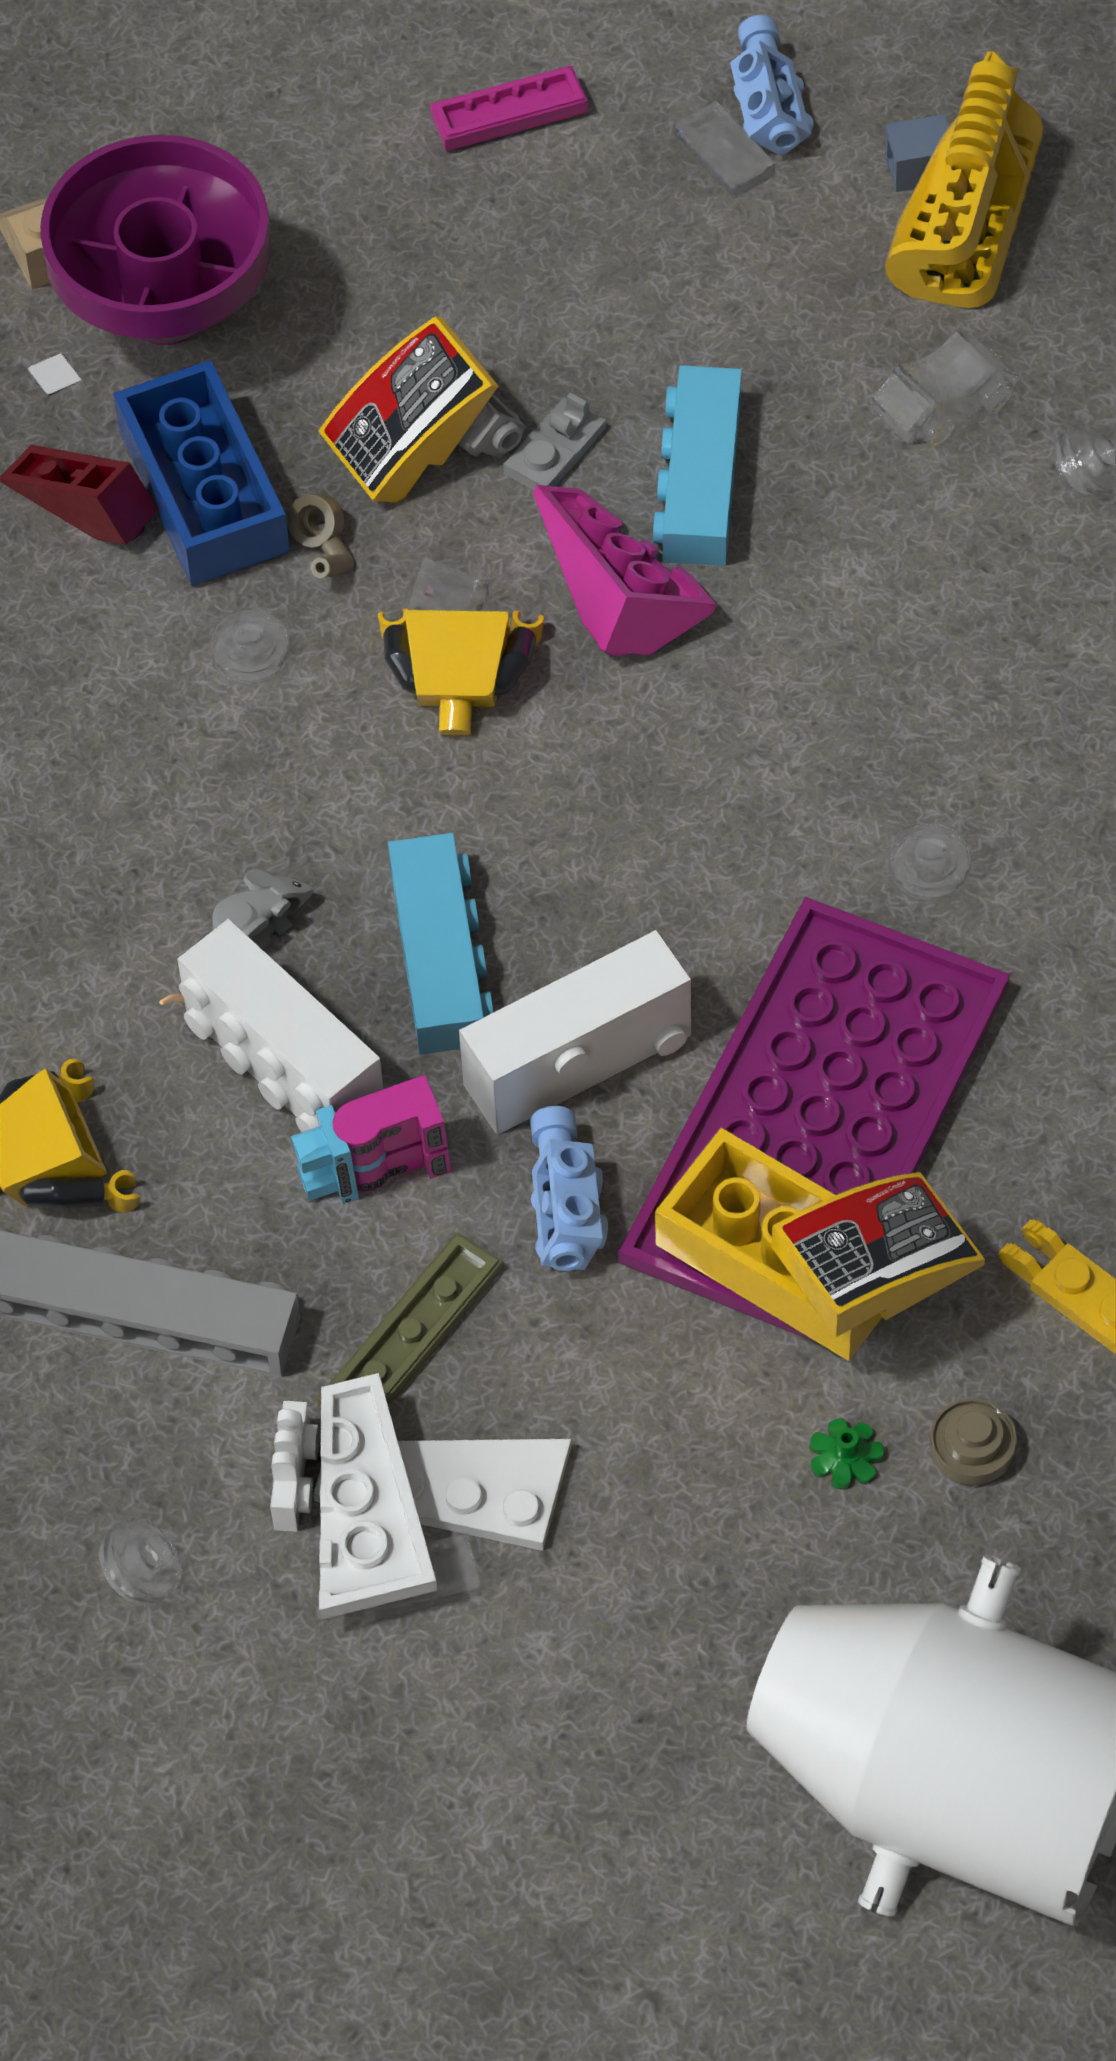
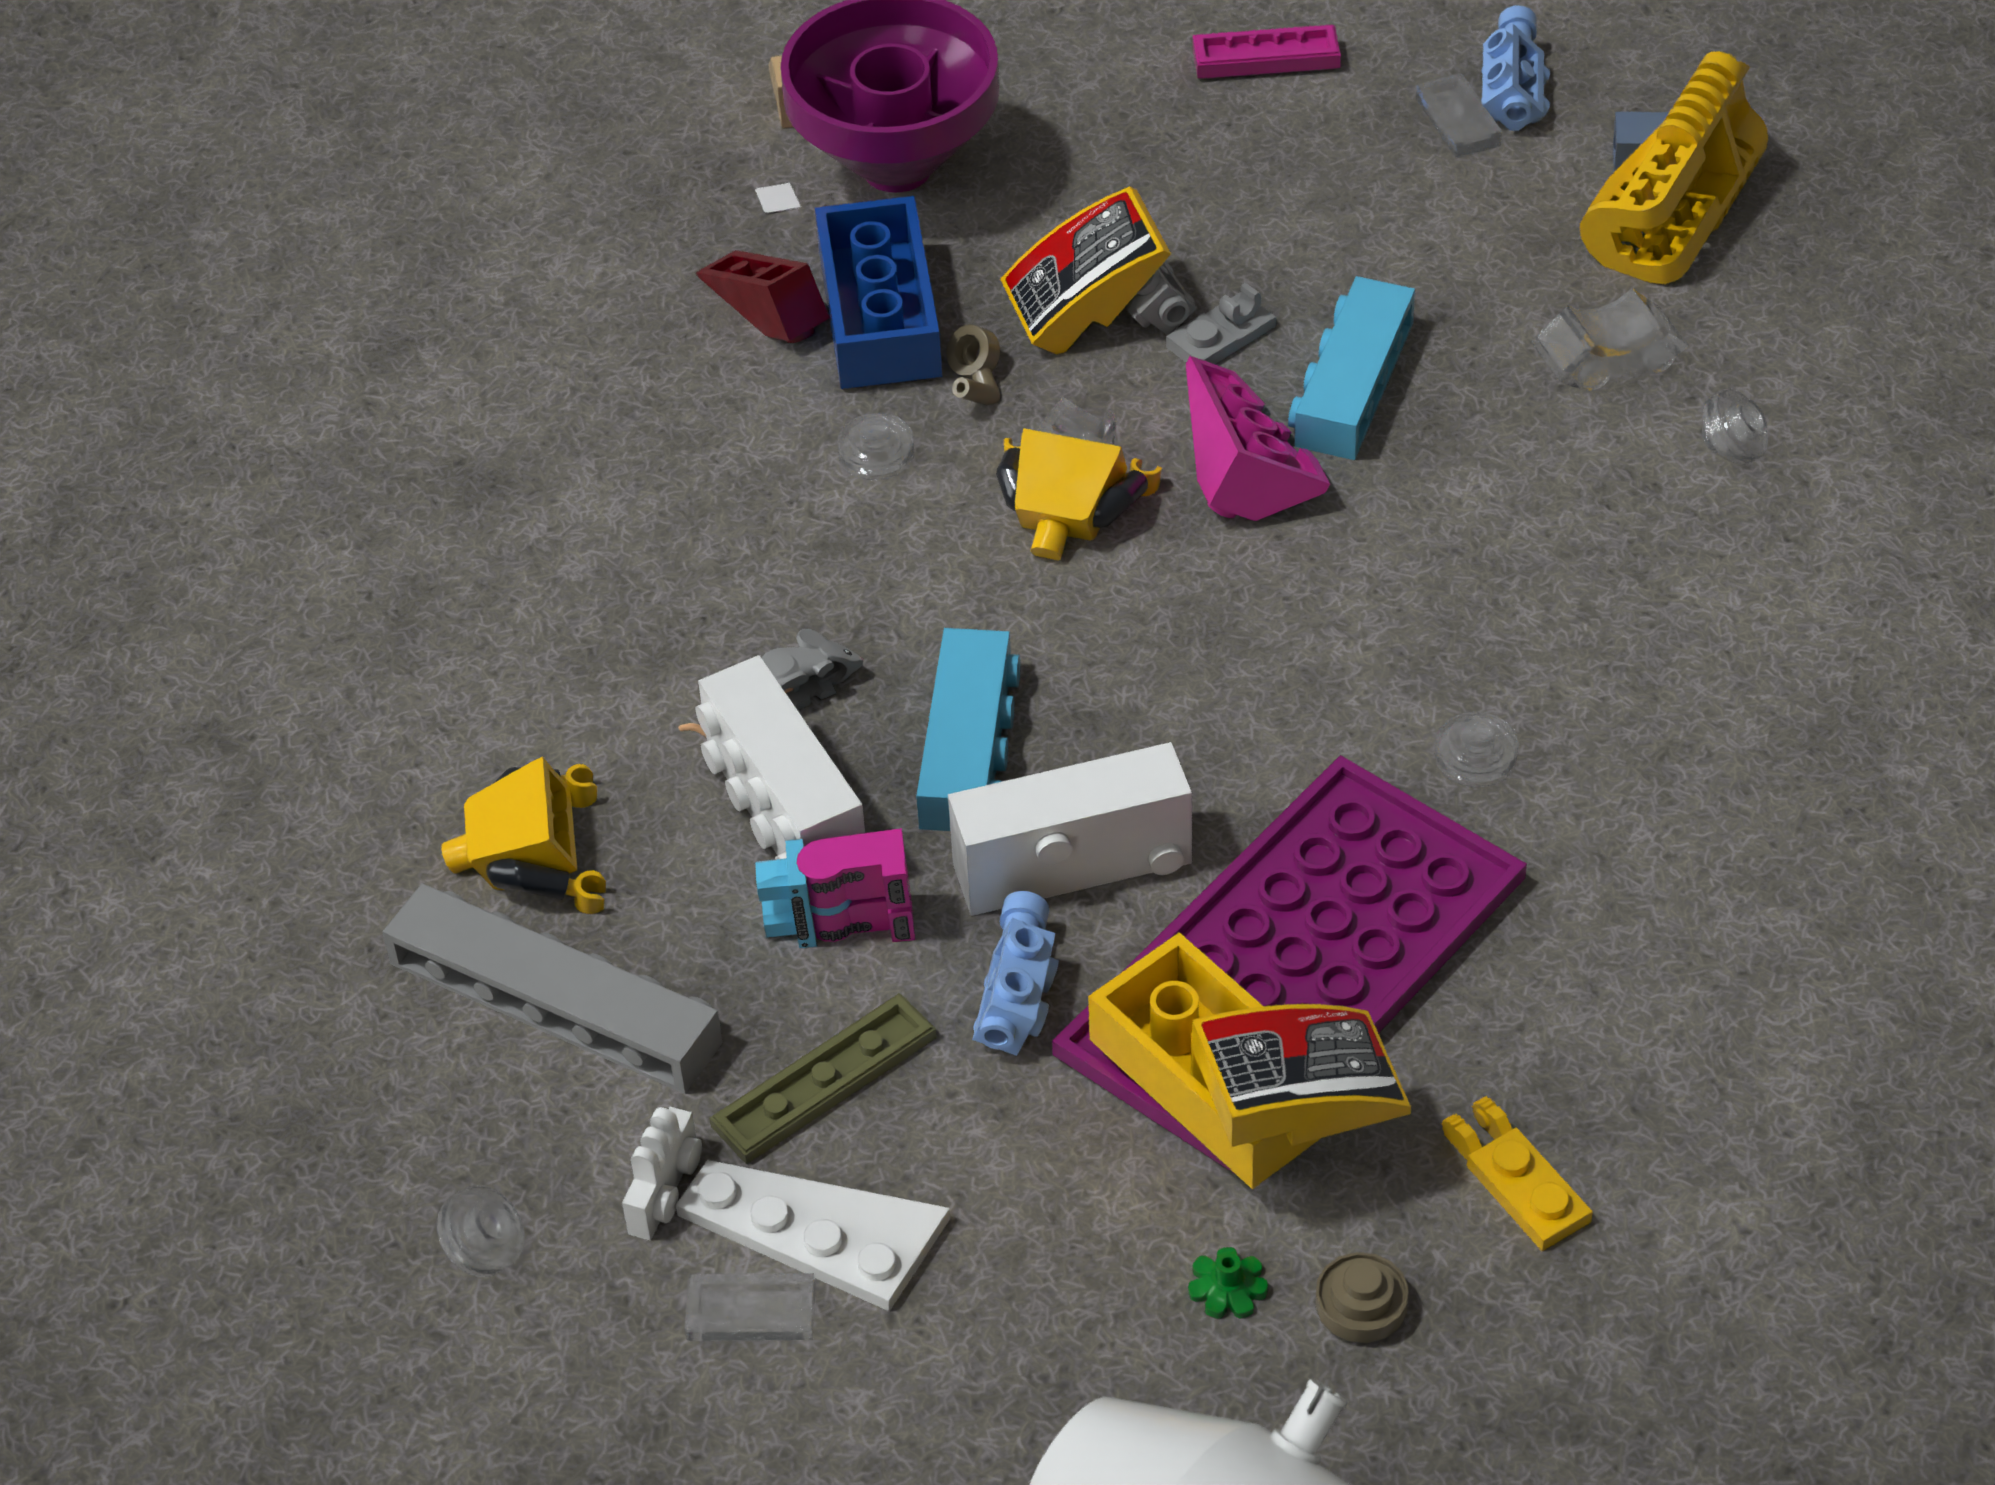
camera: 15 degrees right, 10 degrees down
(368, 1514) = (717, 1223): white wing -> none

